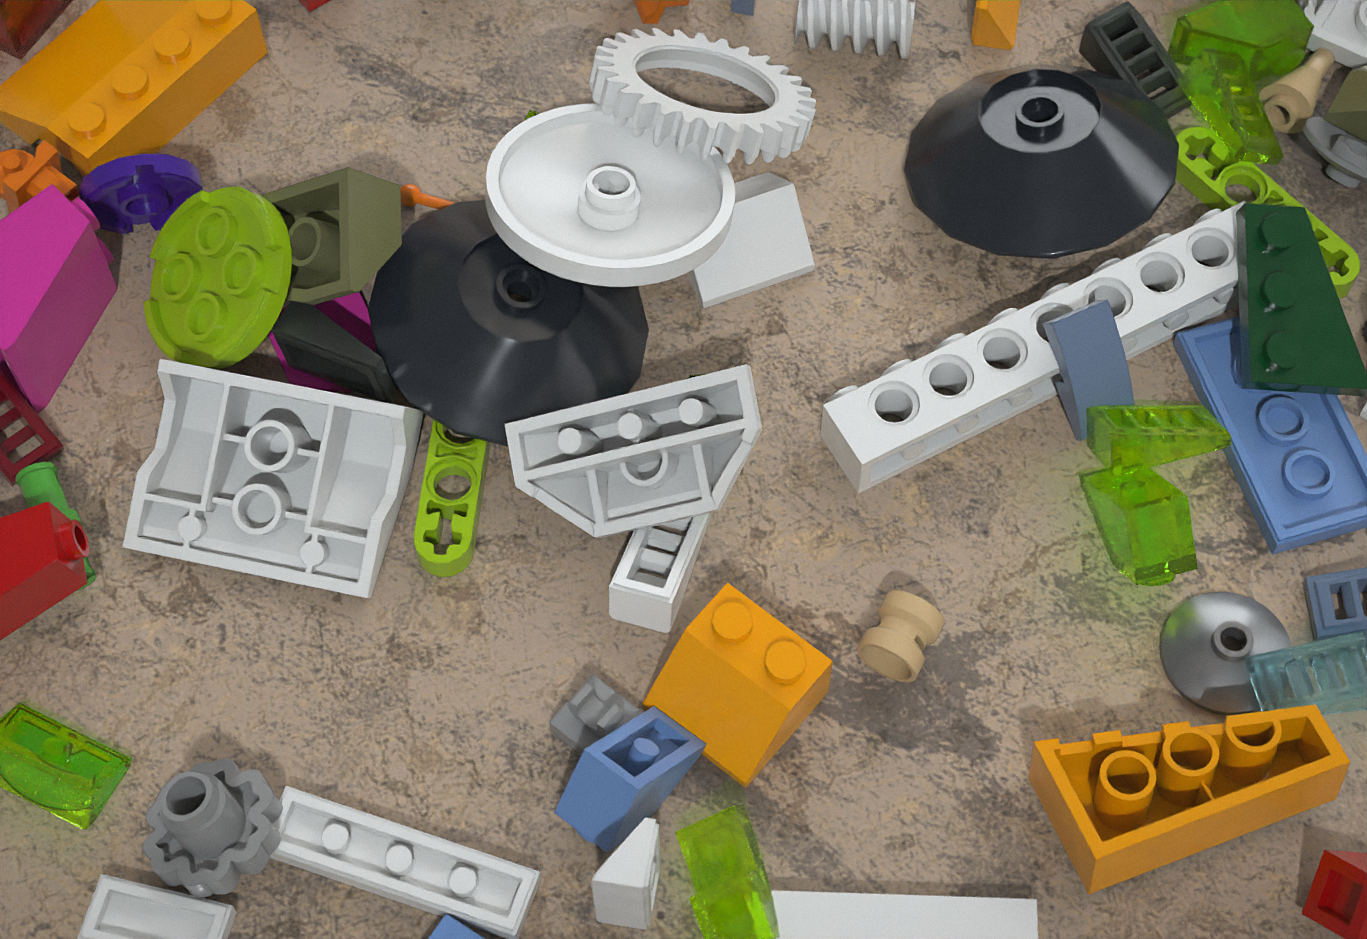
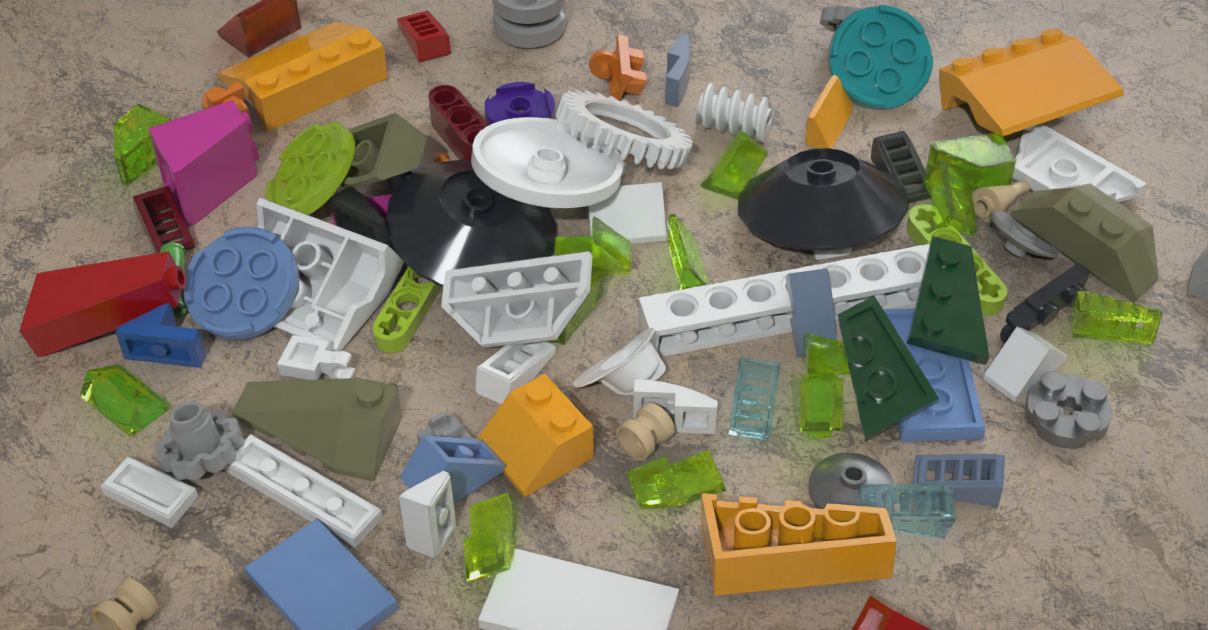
camera: 15 degrees right, 15 degrees down
(65, 649) = (159, 340): none -> blue slope
(139, 190) = (280, 119): dark purple tile -> none
(176, 515) = (241, 283): none -> medium blue tile
(332, 623) = (311, 357): none -> white plate
(398, 731) = (333, 420): none -> olive wedge
(426, 131) = (454, 119): none -> dark red beam
(503, 50) = (519, 96): none -> dark purple plate
(720, 324) = (609, 249): none -> clear neon green slope
(831, 528) = (632, 362): none -> white piece
(859, 302) = (685, 254): none -> clear neon green slope
(878, 112) = (734, 166): none -> clear neon green slope
(950, 580) = (689, 408): none -> white slope
(971, 709) = (676, 484): none -> clear neon green slope
(1041, 484) = (759, 371): none -> clear light blue slope
(1229, 453) = (882, 370): none -> dark green wing

